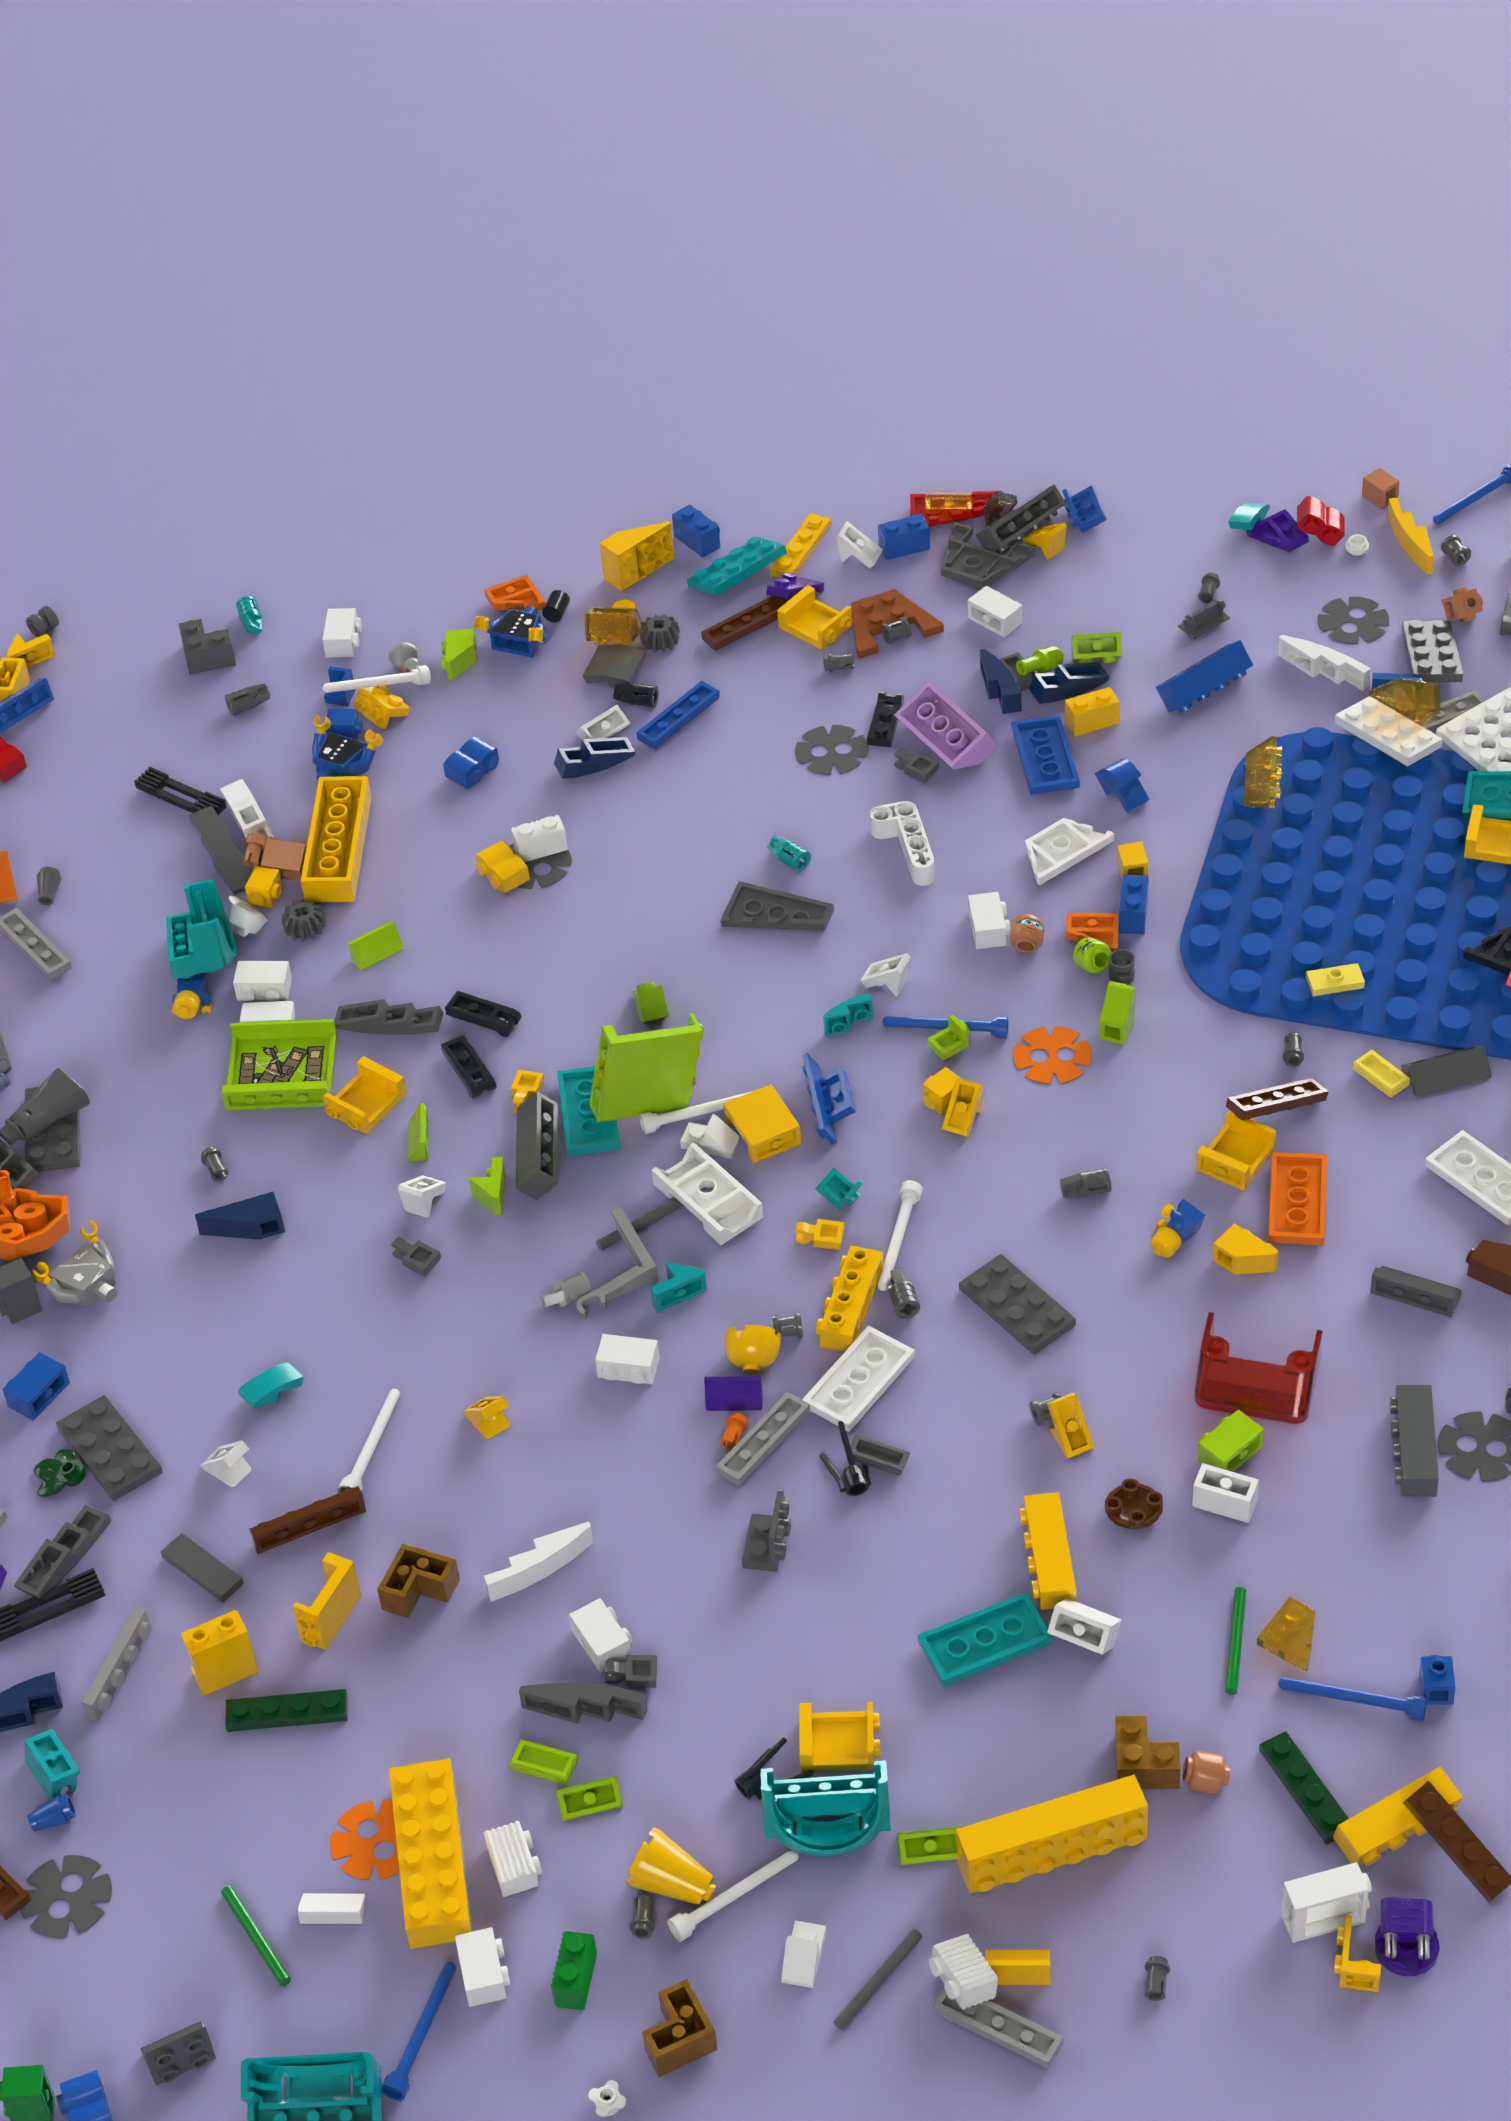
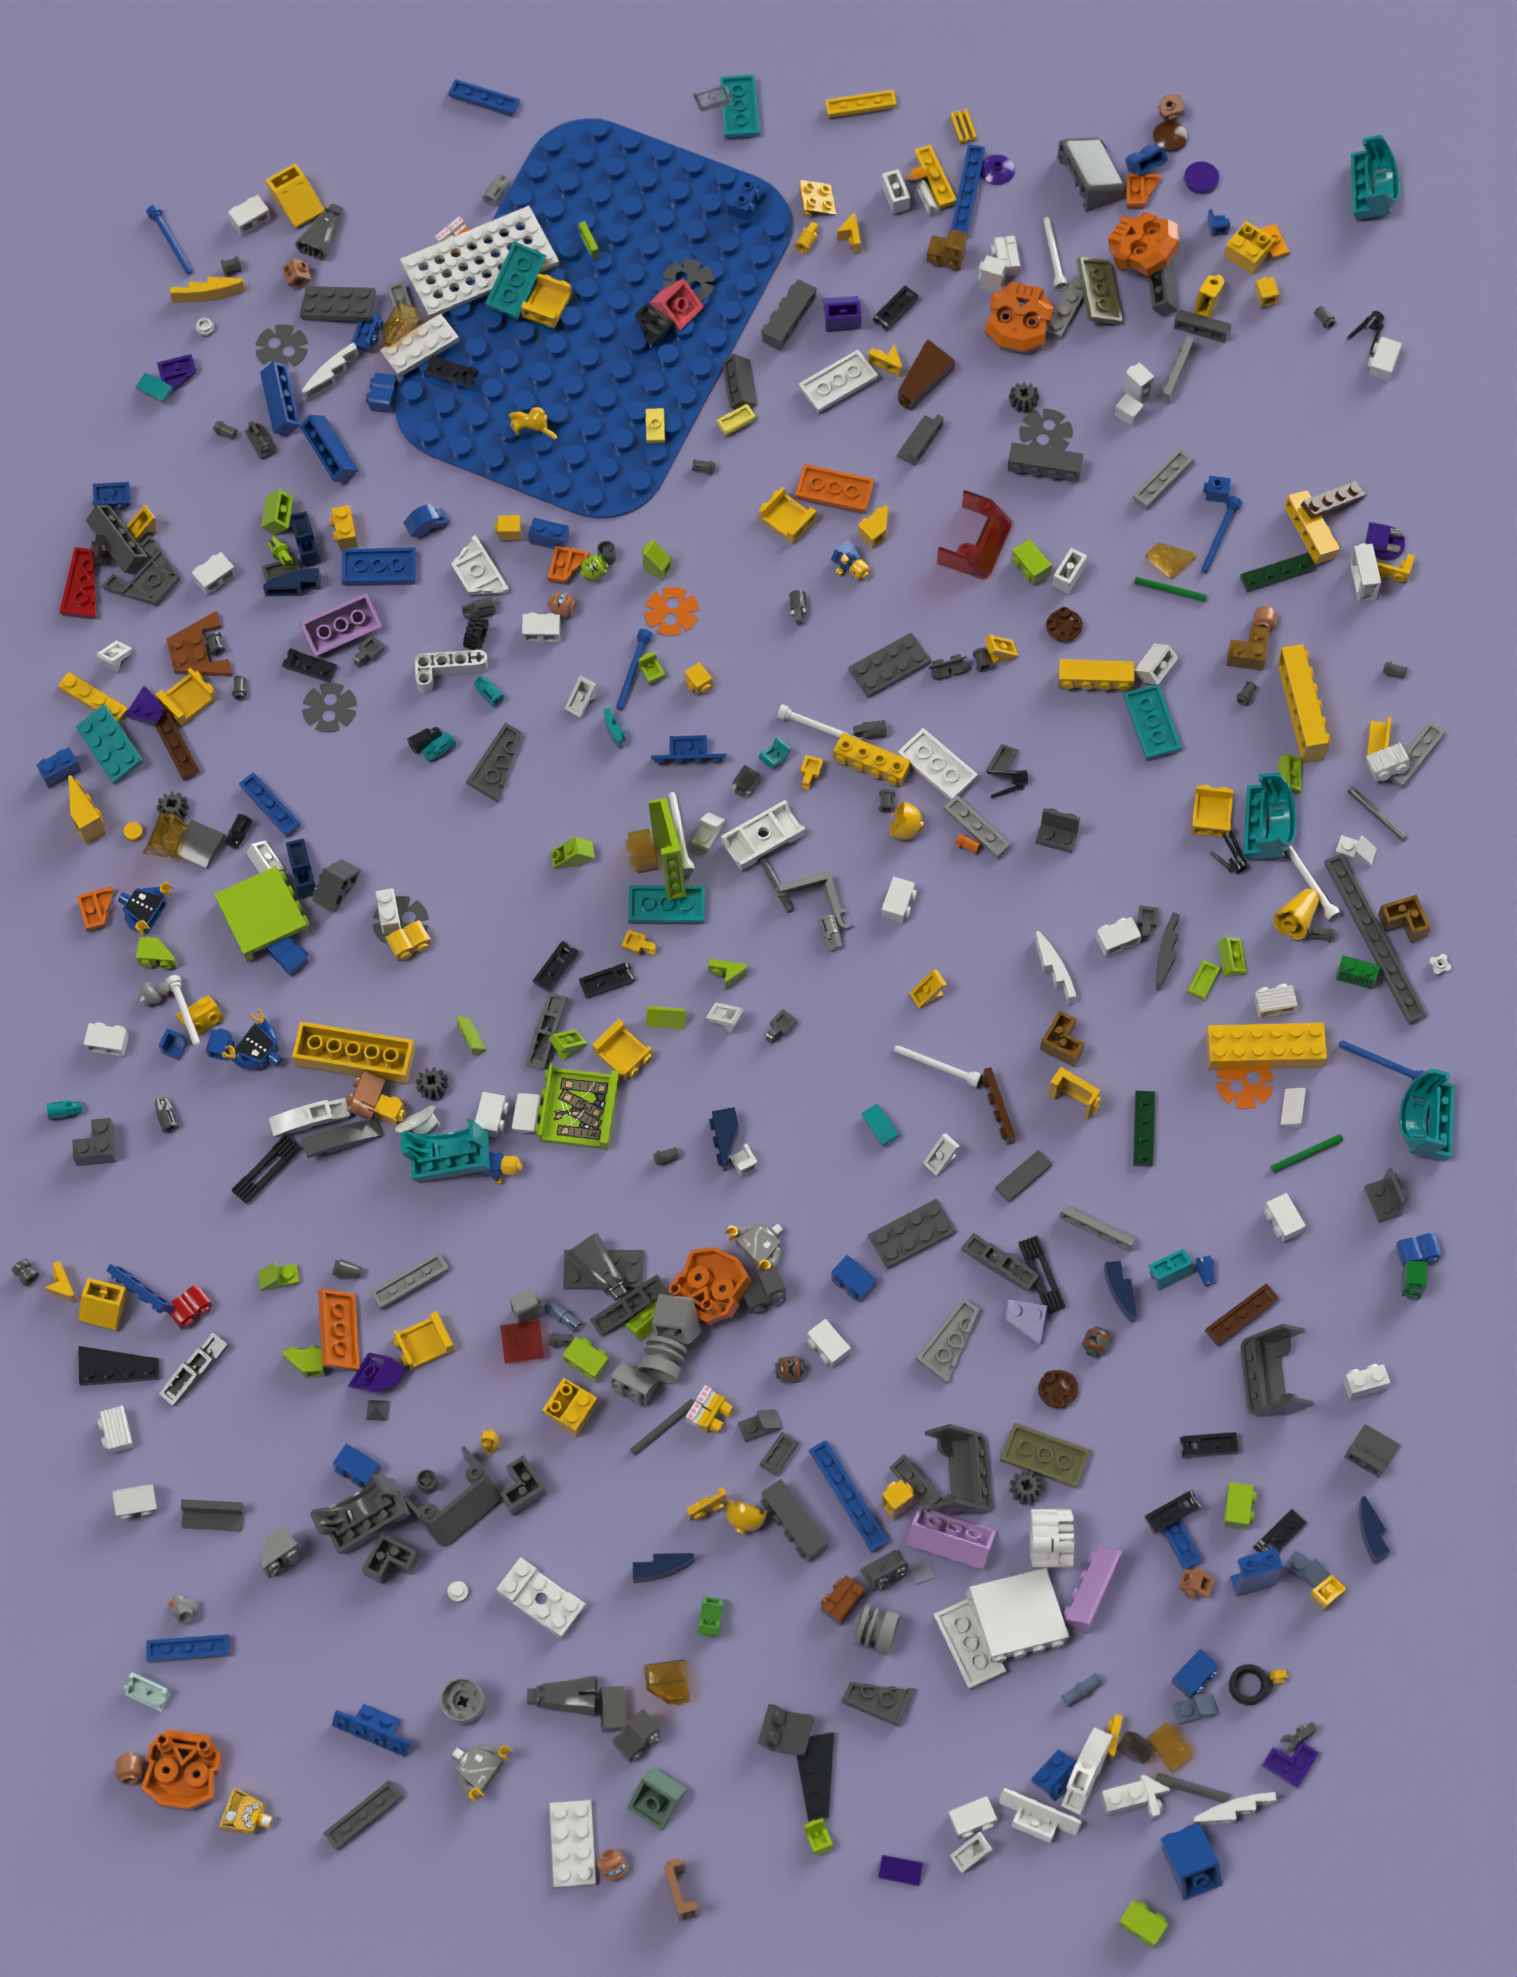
camera: 85 degrees left, 20 degrees up
(40, 831) = (277, 1277): none -> lime slope
(59, 1472) = (929, 1268): dark green plate -> none
(82, 1911) = (1260, 1249): dark grey piece -> none
(136, 1906) = (1284, 1217): none -> white brick
(209, 1249) = (744, 1161): none -> white panel
(220, 1652) = (1108, 1158): yellow panel -> none
(370, 1036) = (567, 1043): none -> lime slope
(481, 1967) = (1347, 1023): white brick -> none
(522, 727) = (261, 911): none -> lime panel
(537, 1145) = (699, 938): dark grey brick -> none
(556, 606) = (118, 878): black piece -> none
(570, 780) = (334, 883): none -> dark grey brick
(639, 1995) = (1375, 939): none -> dark grey plate
(681, 1285) = (839, 861): teal slope -> none
(733, 1393) = (937, 840): dark purple slope -> none
(763, 1123) = (703, 793): yellow panel -> none
(789, 1165) = (746, 782): none -> clear smoke brick
(792, 830) = (423, 738): none -> black hinge
(880, 887) = (489, 691): none -> teal hinge
(904, 536) = (110, 622): blue brick -> none
(948, 499) = (77, 583): clear yellow slope -> none
(962, 843) = (475, 633): none -> black tyre
(963, 1106) = (719, 667): yellow slope -> none
(1006, 859) = (478, 608): none -> dark grey hinge
(1023, 1361) = (941, 668): none -> dark grey hinge
(1064, 1763) = (1244, 697): none -> dark grey pin
(1262, 774) = (458, 425): clear yellow slope -> none
(1267, 620) = (280, 398): none -> blue brick
(1277, 1099) = (754, 481): reddish brown plate -> none
(1298, 851) = (534, 420): none -> yellow animal
(1305, 713) = (382, 392): none -> blue brick
(1320, 520) = (180, 341): red brick -> none
(1356, 765) = (452, 371): none -> black plate
(1380, 487) = (147, 297): nougat brick -> none
(1436, 1604) = (1163, 478): none -> light grey plate

